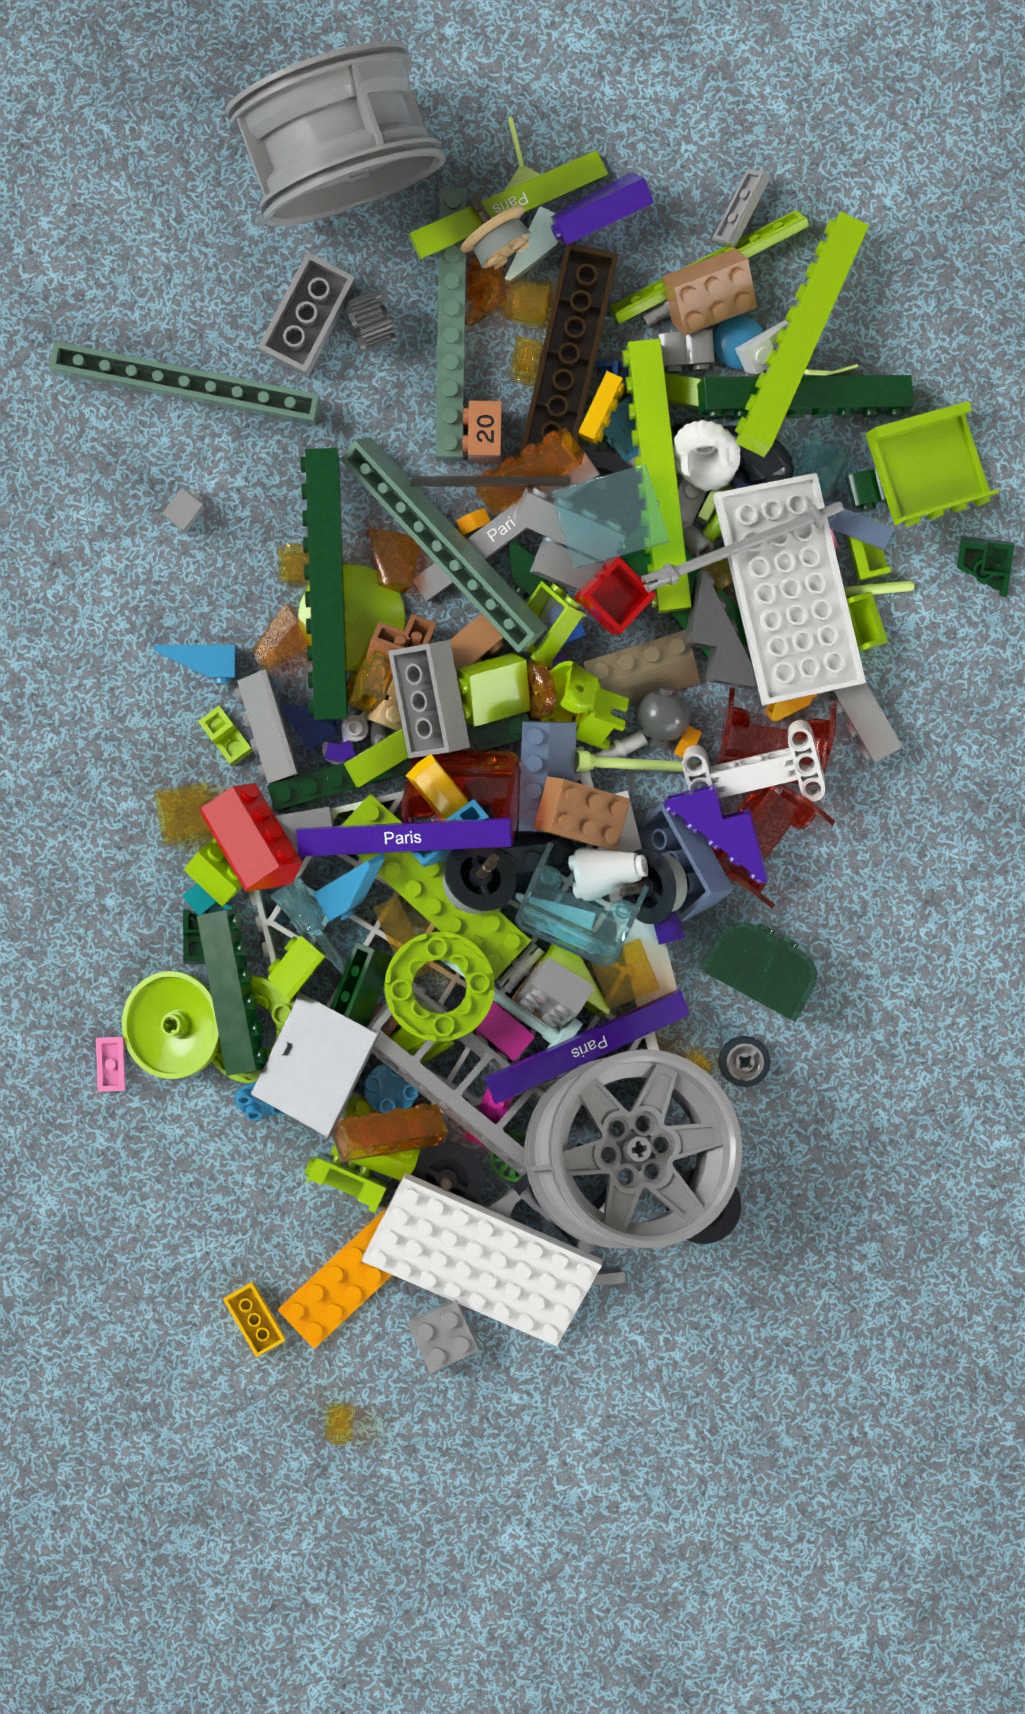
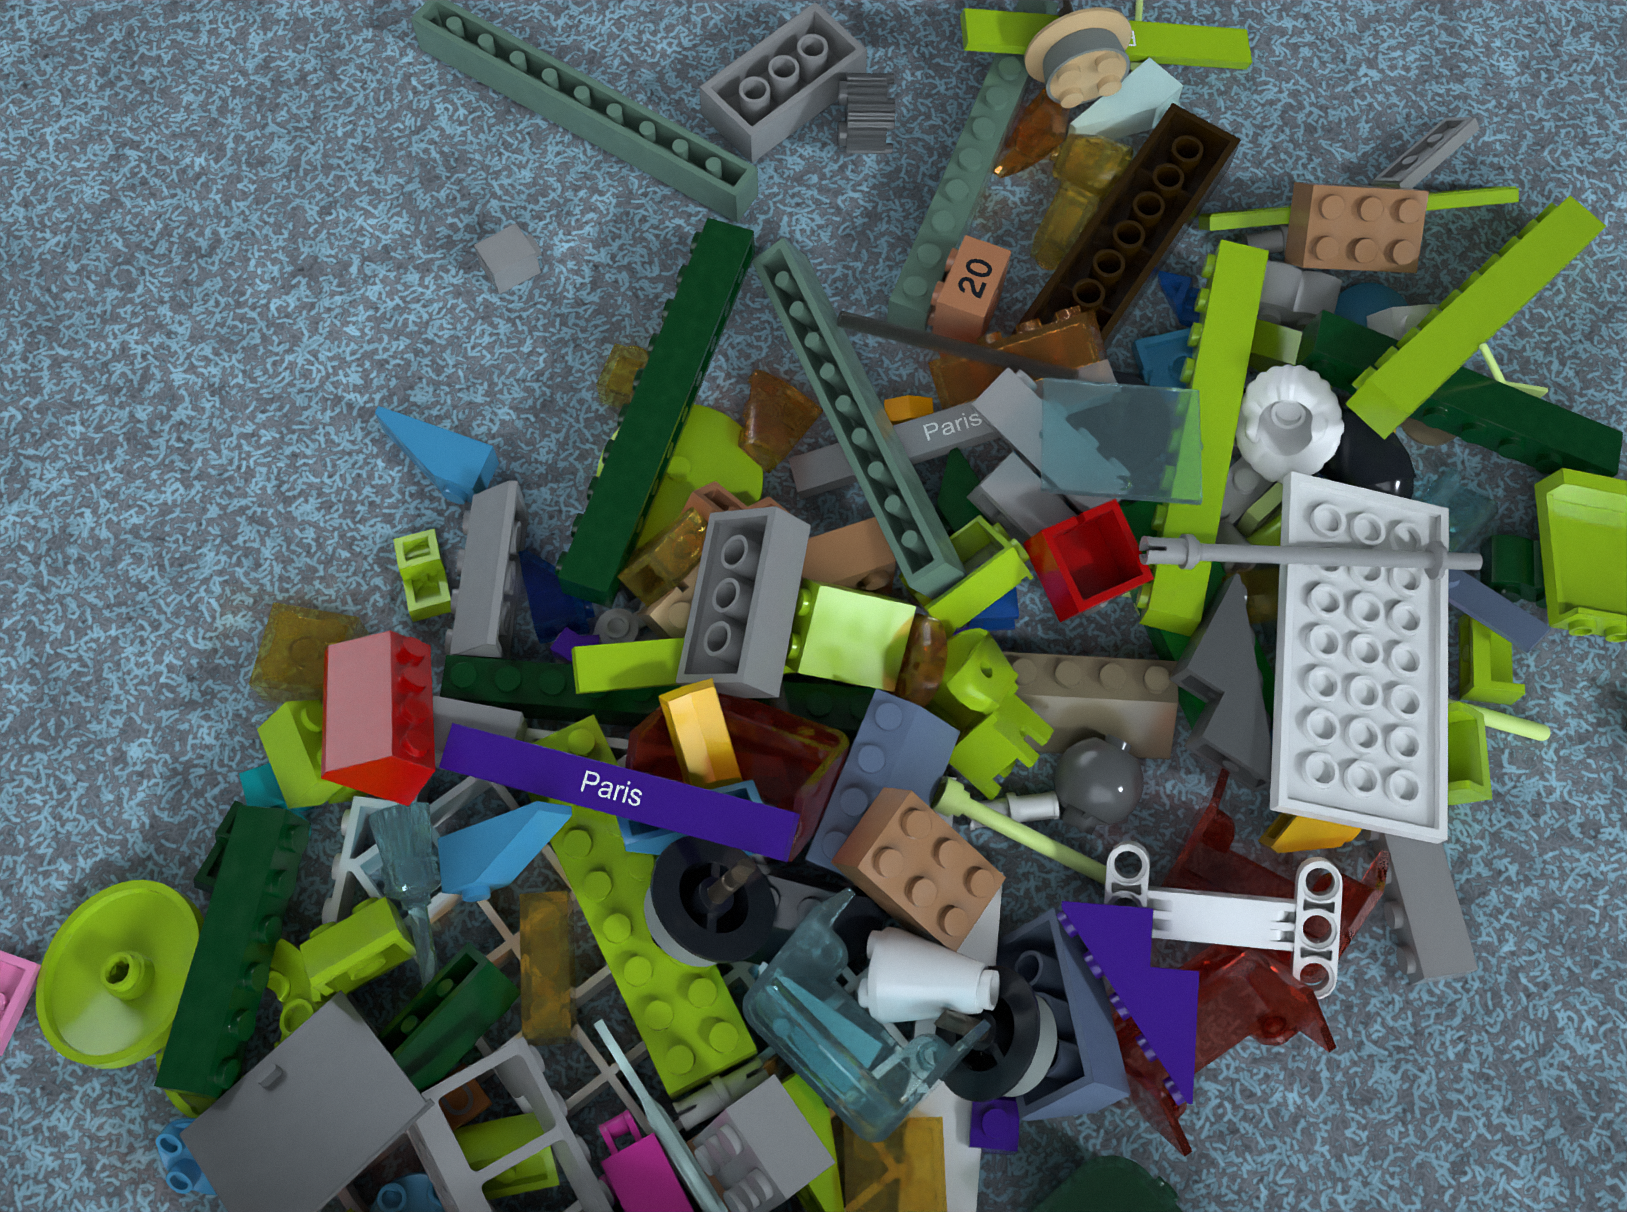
camera: 20 degrees right, 20 degrees down
(280, 640) = (561, 473): clear orange slope -> none
(449, 948) = (504, 1026): lime plate -> none
(601, 208) = (1237, 80): dark purple slope -> none
(601, 408) = (1151, 319): yellow piece -> none
(688, 739) = (1127, 829): light orange piece -> none

